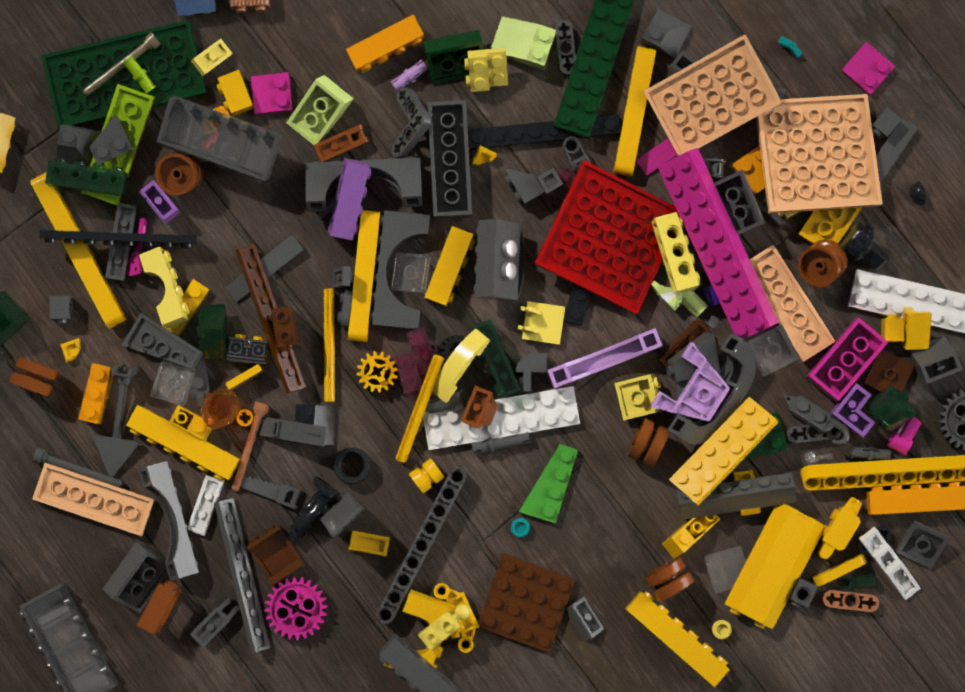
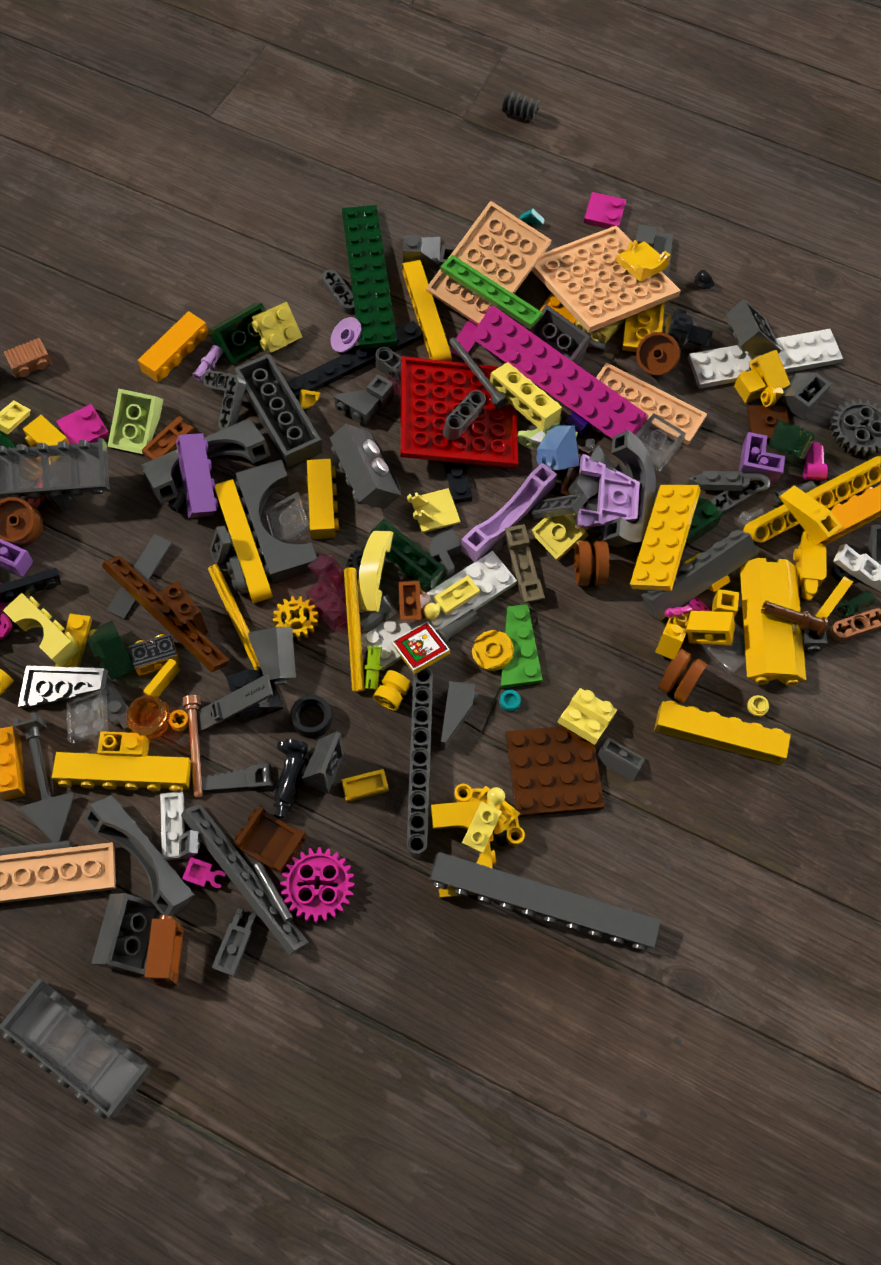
camera: 30 degrees left, 20 degrees down
(210, 530) = (188, 844): none -> dark grey plate
(210, 554) = (199, 872): none -> dark pink plate
(259, 597) = (273, 892): none -> dark grey bar
(345, 398) = (275, 653): none -> dark grey slope
(420, 448) = (373, 667): none -> lime pin
(466, 451) = (421, 647): none -> tile
(474, 514) = (458, 708): none -> dark grey slope
(514, 418) = (452, 598): none -> light yellow plate
(524, 41) = (304, 296): yellowish green slope -> none
(527, 478) = (493, 650): none -> yellow tile
(546, 103) = (345, 334): none -> lavender dish
(574, 574) = (587, 715): none -> light yellow plate
(593, 412) = (523, 564): none -> dark tan slope
(617, 245) = (464, 415): none -> dark grey beam
(644, 381) = (558, 506): none -> dark grey tile
(650, 241) = (498, 398): none -> dark grey piece
(675, 322) = (558, 448): none -> medium blue slope
(697, 131) = (491, 291): none -> bright green plate
(717, 548) = (711, 627): none -> yellow brick
(723, 524) = (693, 605): none -> dark pink piece
(742, 532) = (725, 601): none -> yellow brick
(796, 582) = (803, 620): none -> reddish brown pin
(846, 359) = (726, 422): dark pink brick -> none
(860, 491) = (811, 515): none -> yellow slope
(864, 154) = (643, 260): none -> yellow piece
(901, 352) = (770, 396): none -> yellow plate
(927, 276) = (751, 330): none -> dark grey slope

